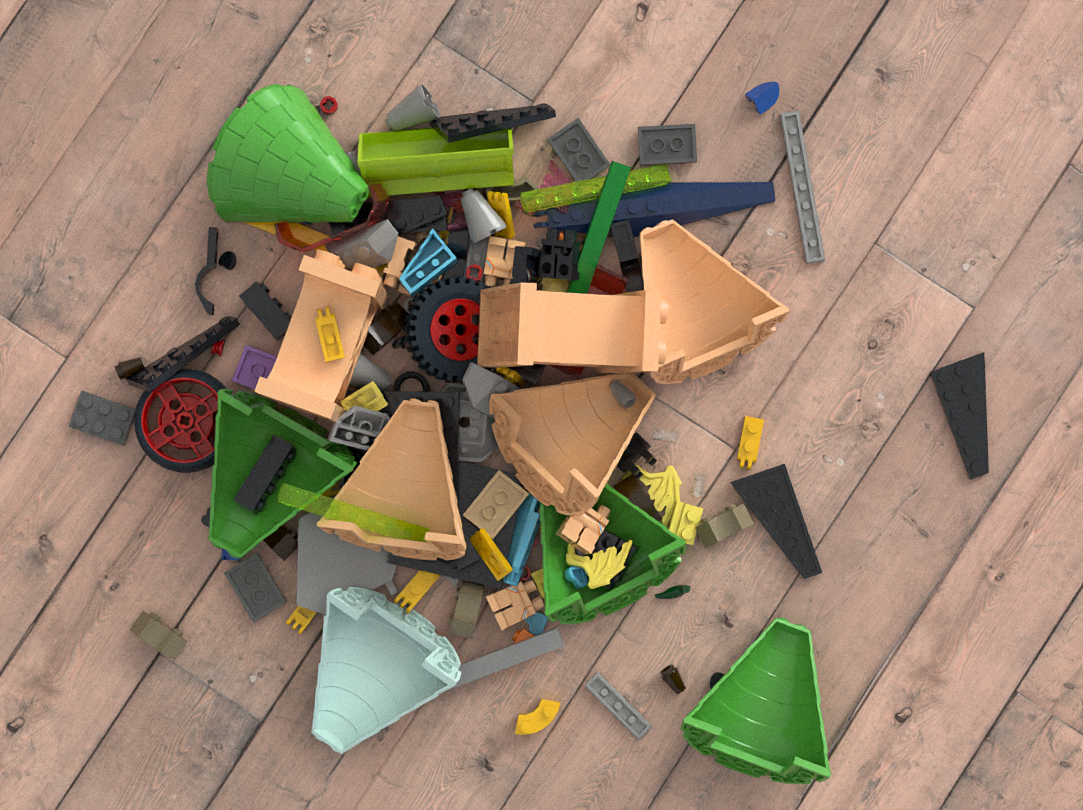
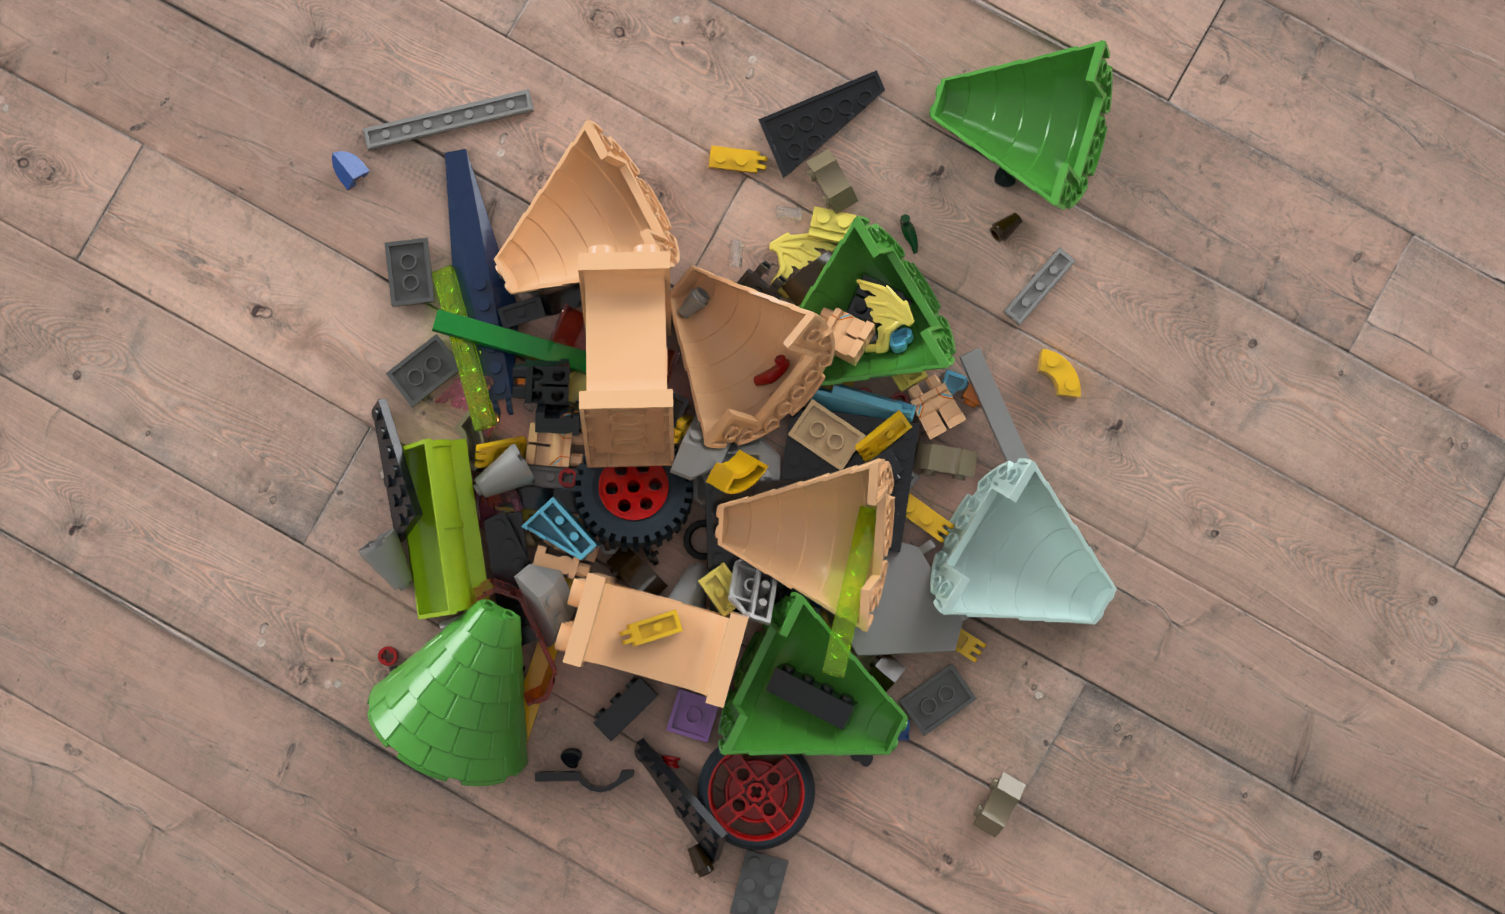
camera: 90 degrees left, 0 degrees up
(465, 422) = (737, 473): none -> yellow brick
(553, 460) = (774, 373): none -> red arm

